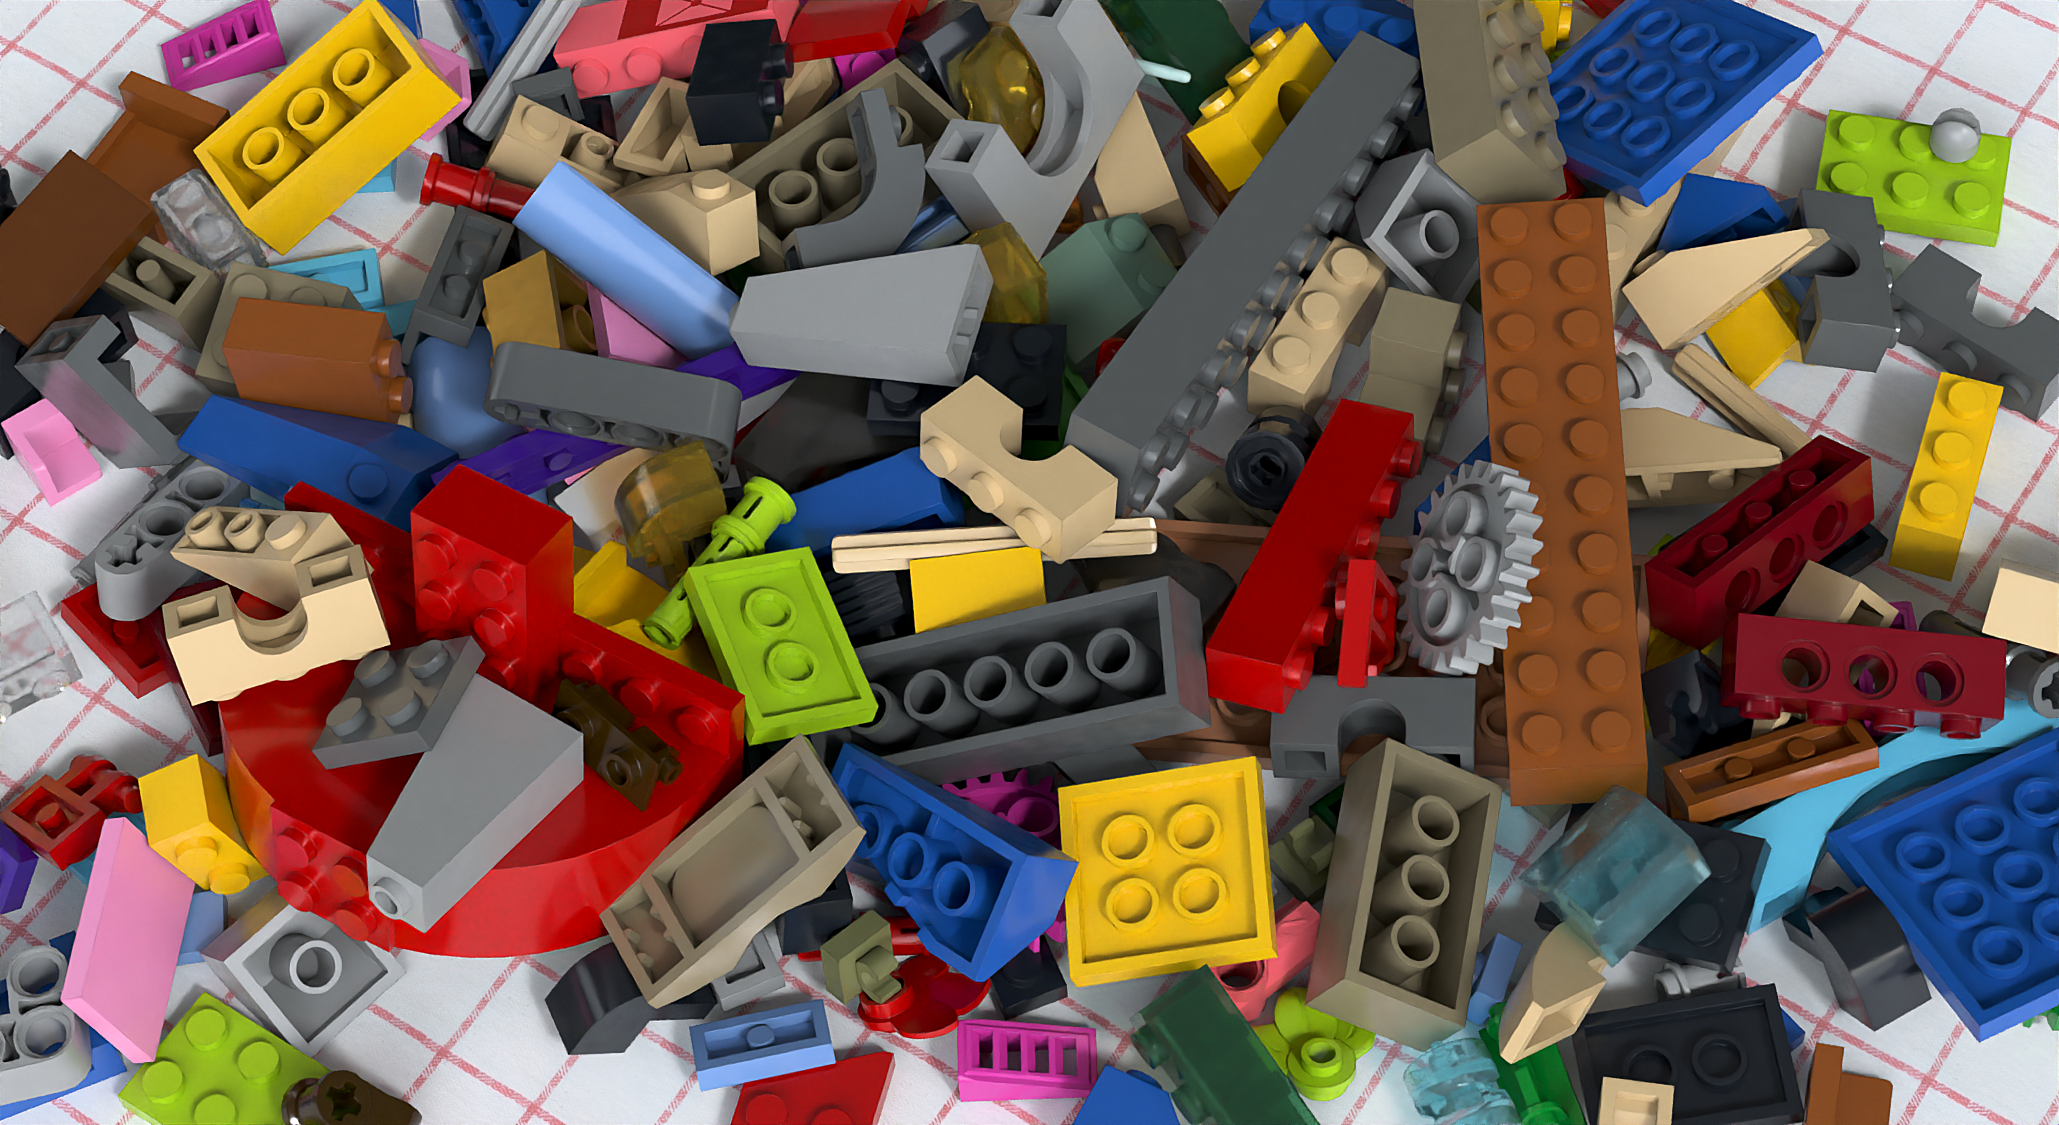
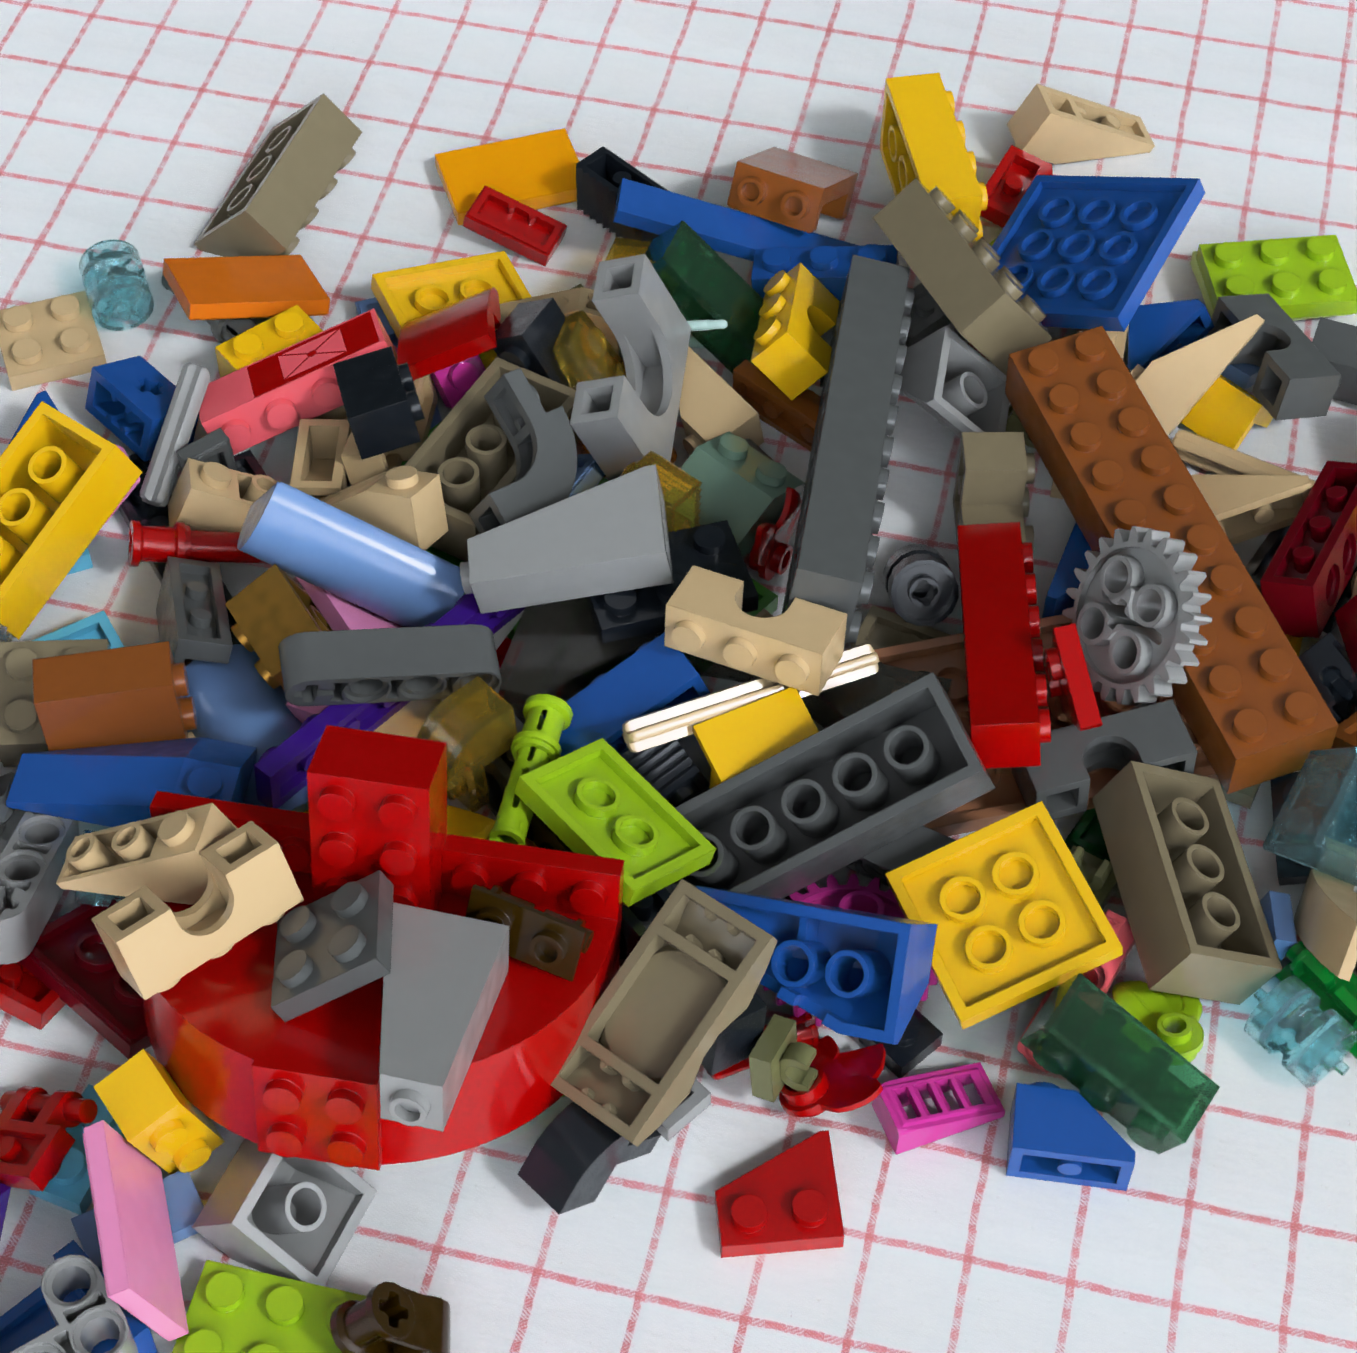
camera: 25 degrees left, 5 degrees down
(761, 1045) = (717, 1156): medium blue plate -> none
(1331, 309) = (907, 484): tan arch -> none
(1955, 135) = (1303, 238): light grey hinge -> none

